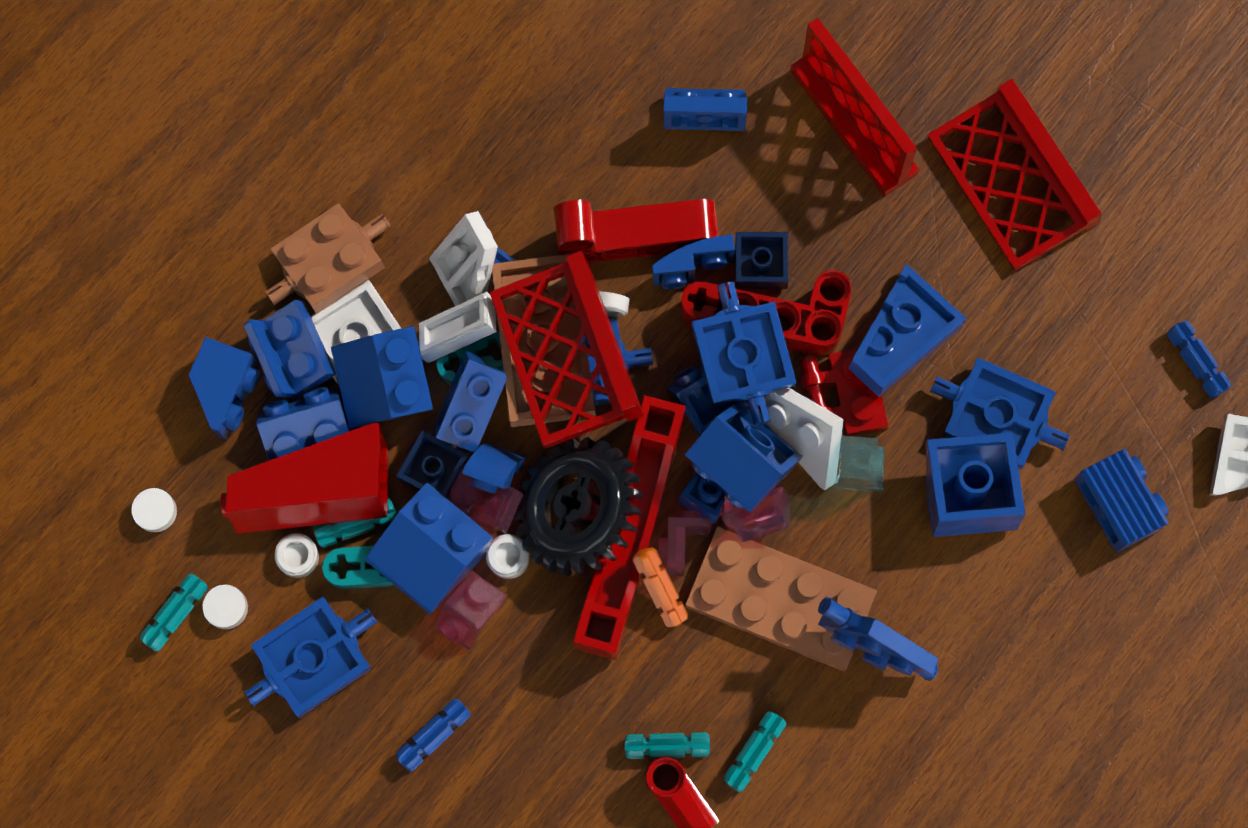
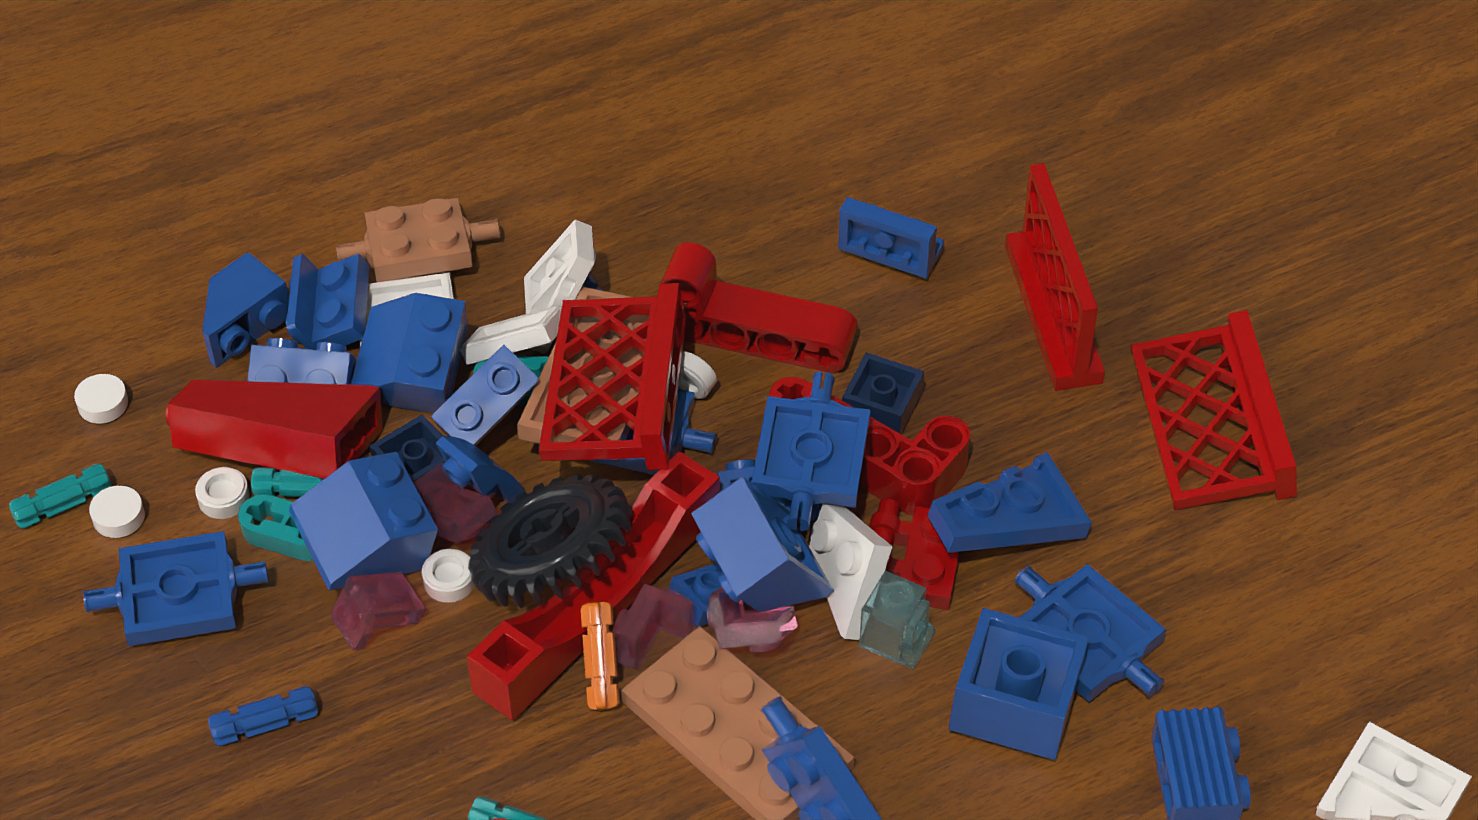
camera: 20 degrees right, 25 degrees down
(679, 266) = (803, 360): blue slope -> none
(1198, 359) = (1359, 665): blue axle -> none

